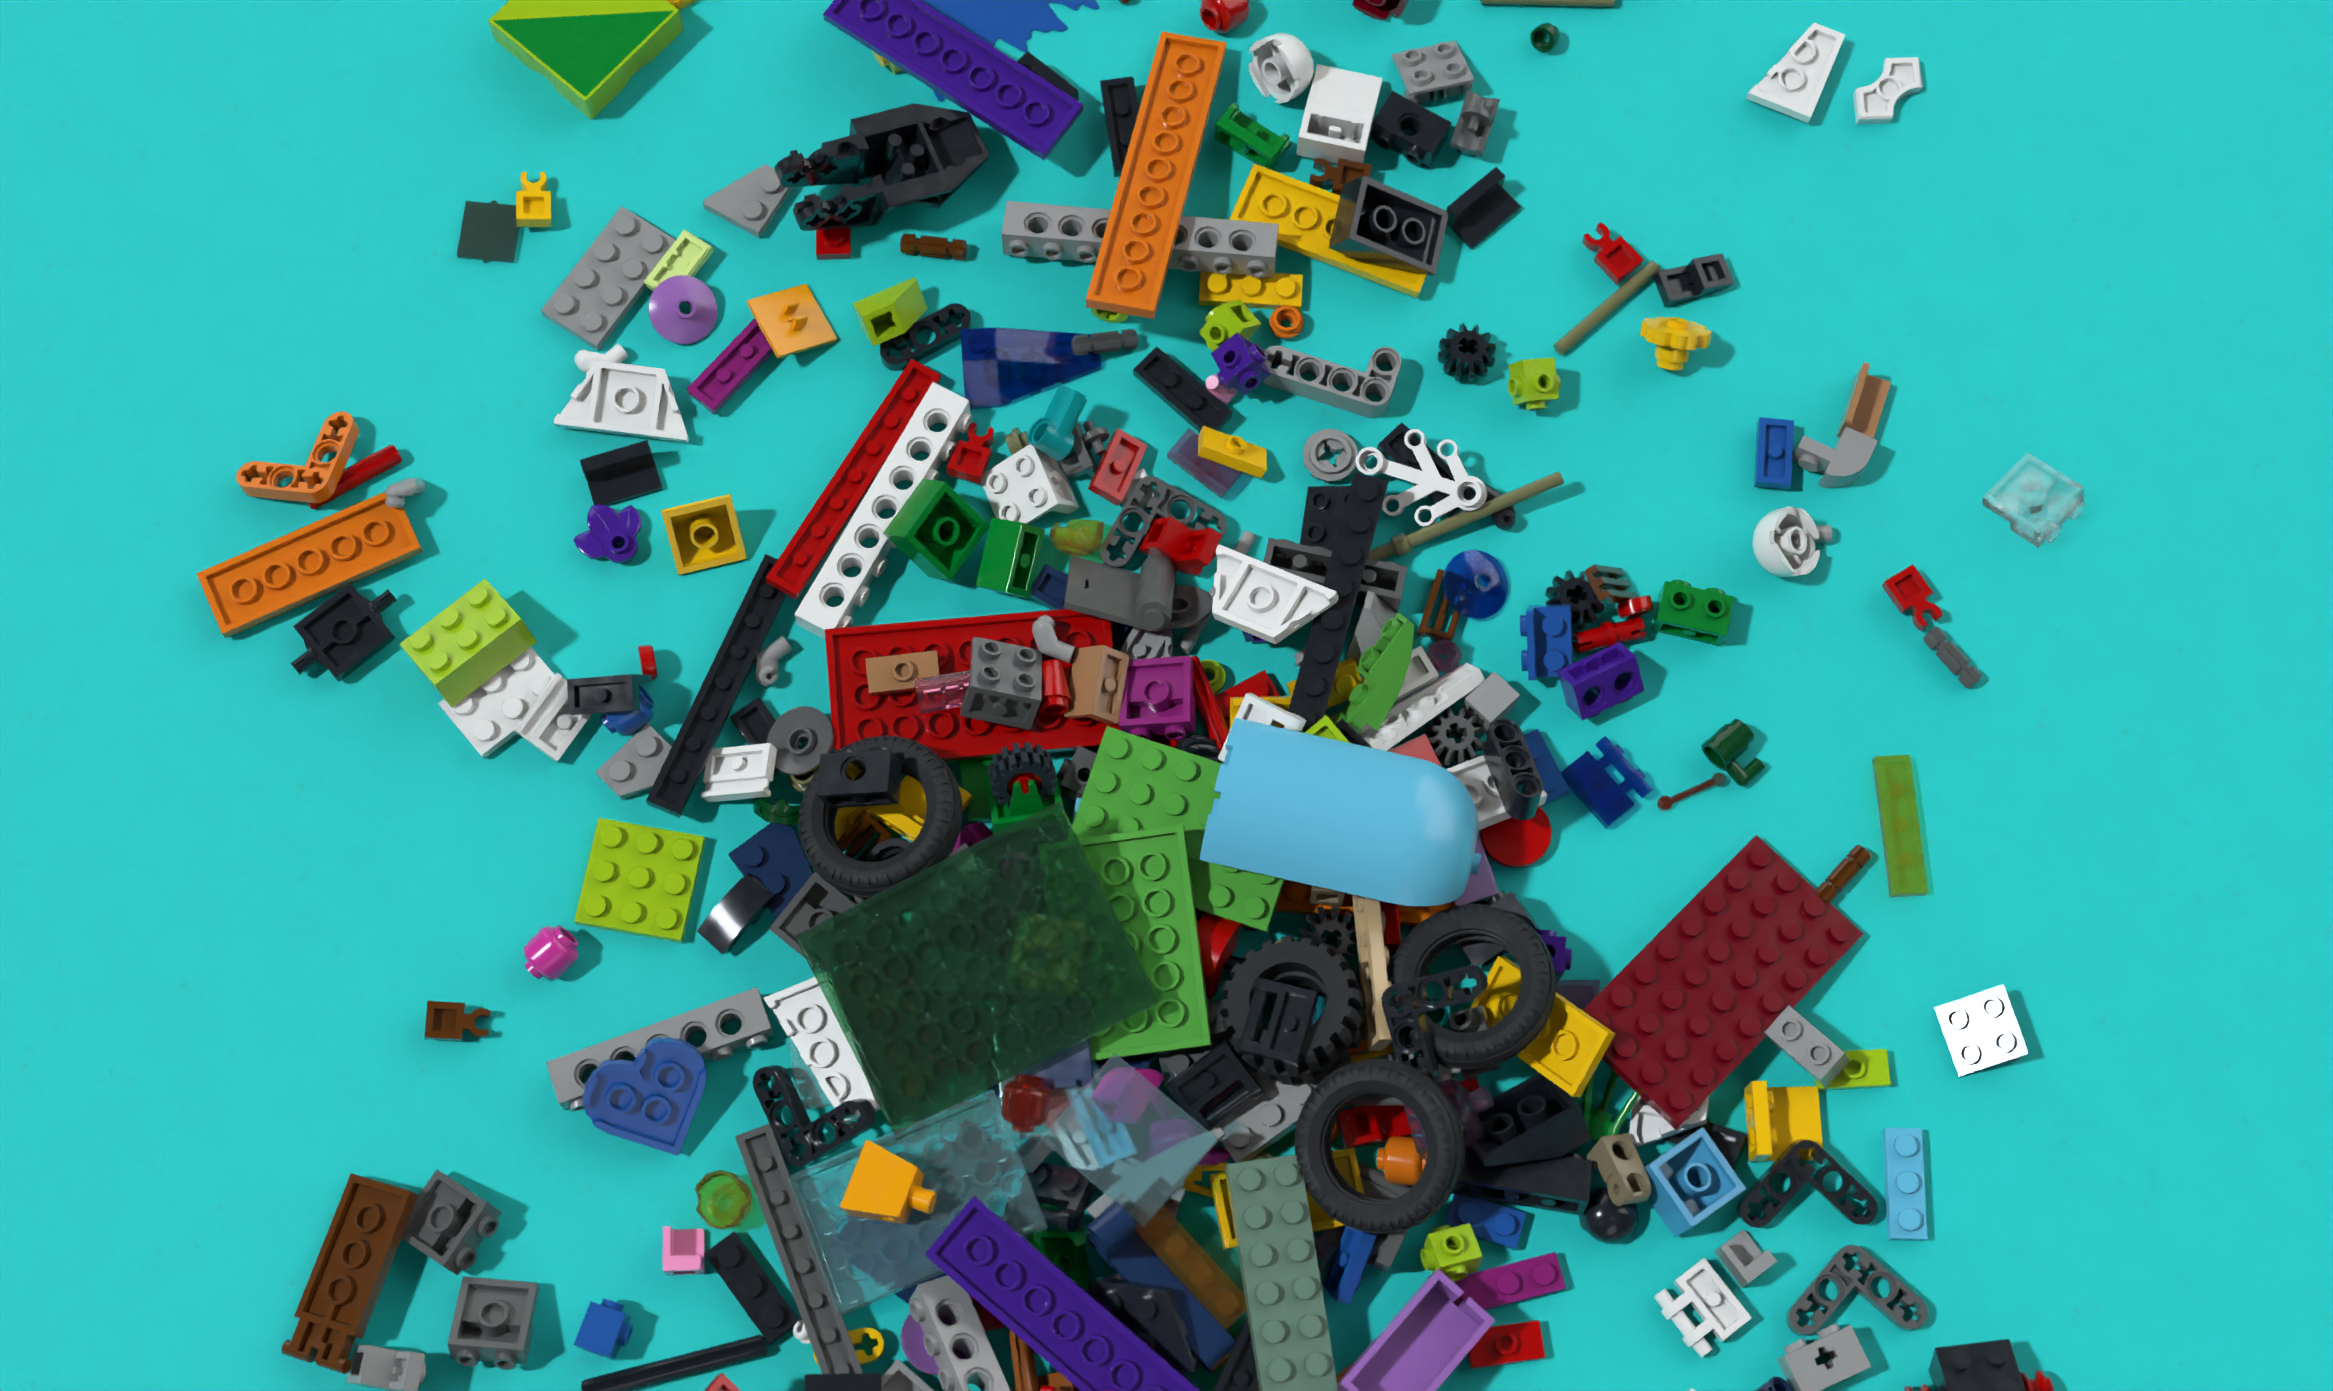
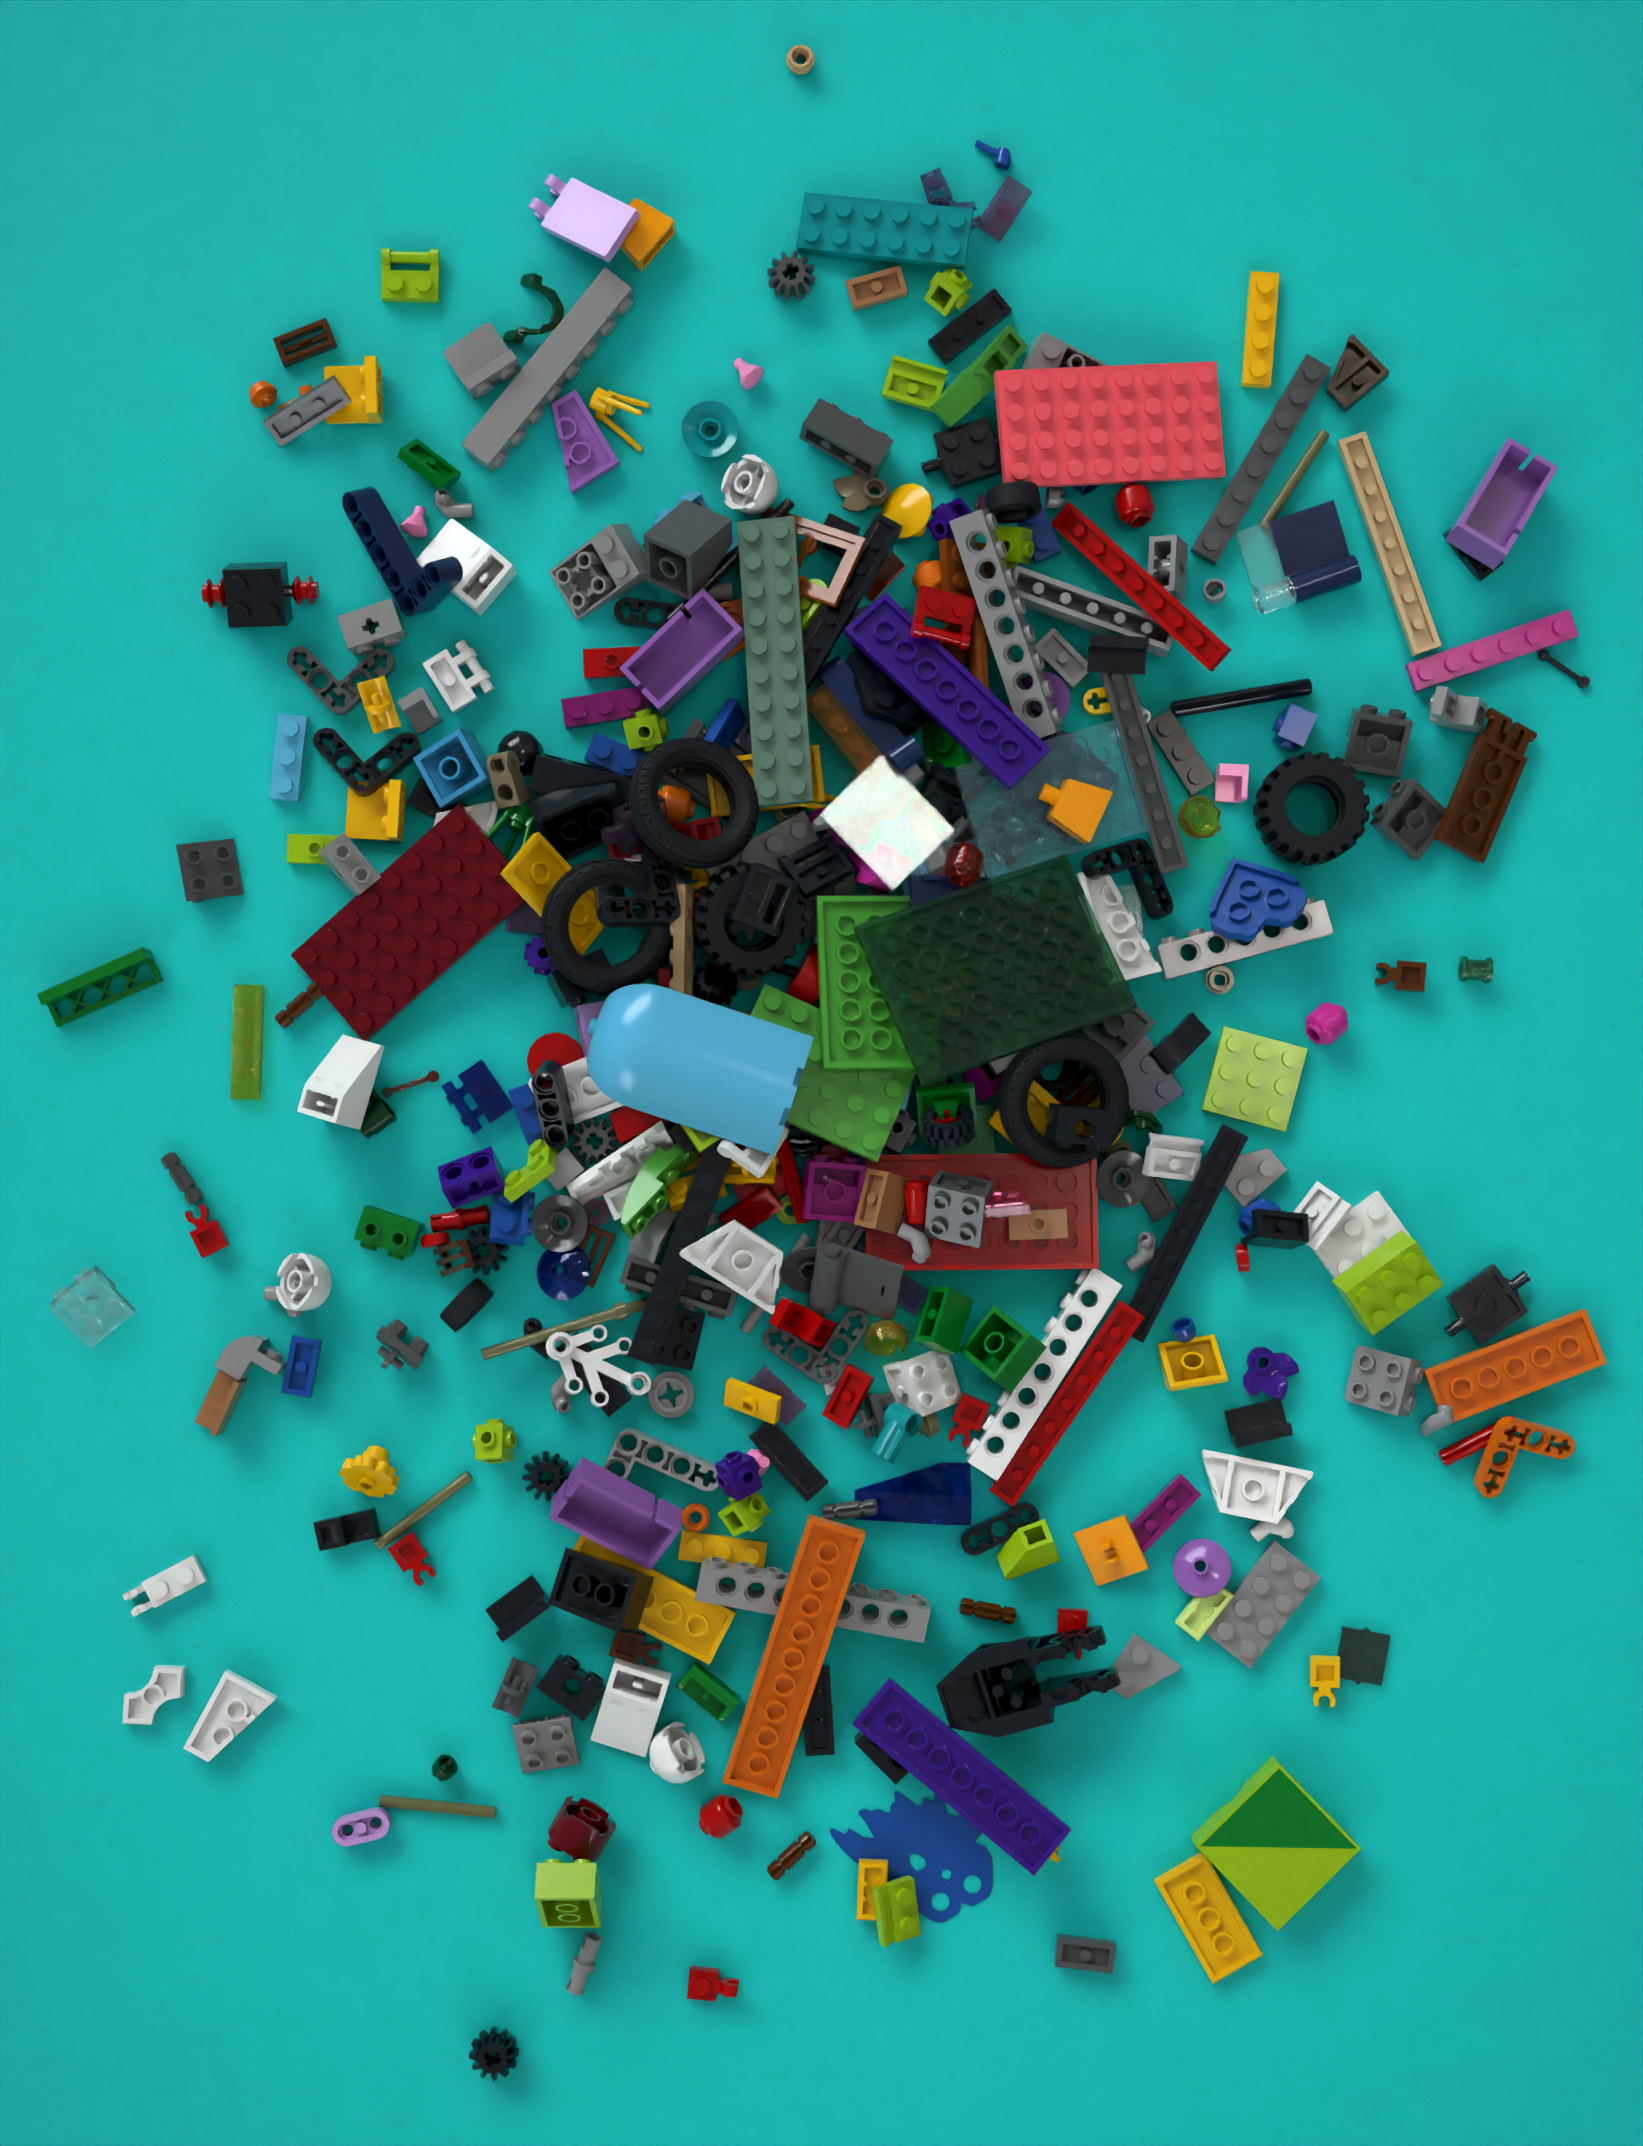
camera: 170 degrees left, 15 degrees up
(360, 1036) = (1475, 969): none -> clear green bush
(469, 532) = (1383, 1381): none -> light grey bracket
(538, 1192) = (1343, 788): none -> black tyre
(682, 990) = (1225, 973): none -> olive plate
(716, 575) = (1184, 1329): none -> blue hinge
(1255, 669) = (753, 1208): none -> red tile
(1381, 309) = (616, 1513): none -> medium lavender piece
(1463, 439) = (560, 1398): none -> light grey arm
(1493, 625) = (547, 1227): none -> dark grey dish
(1526, 685) = (540, 1164): none -> lime plate
(1587, 532) = (466, 1304): none -> black tyre
(1672, 494) = (391, 1338): none -> dark grey hips
(1775, 777) = (342, 1083): none -> white slope
(1800, 1256) = (379, 704): none -> yellow hips
(1892, 206) = (168, 1584): none -> white hinge
(2100, 883) = (95, 977): none -> green fence

